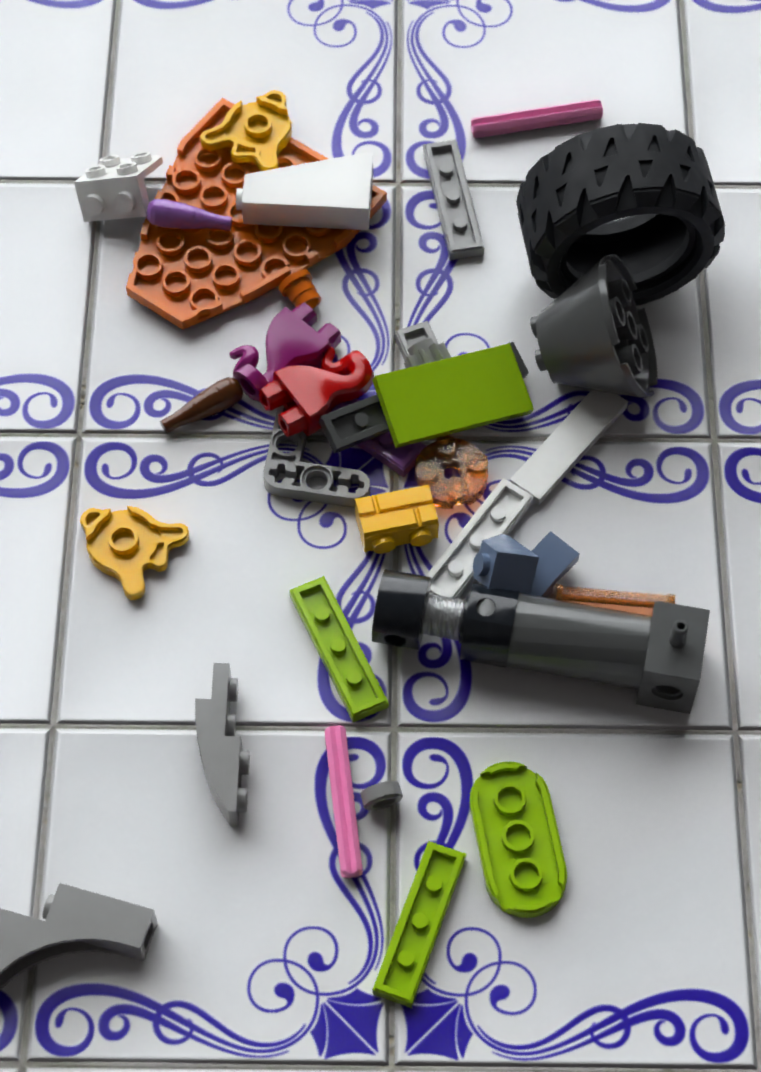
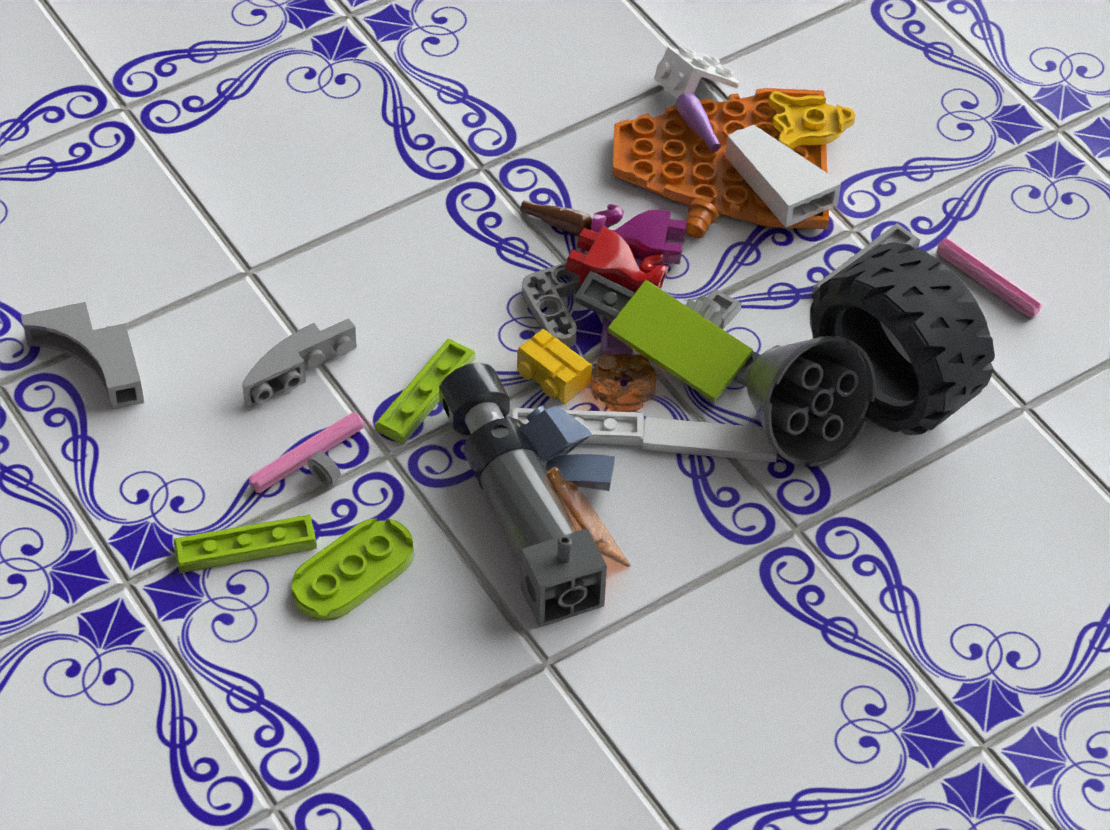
camera: 55 degrees right, 10 degrees down
(129, 543) = (415, 236): yellow tile -> none

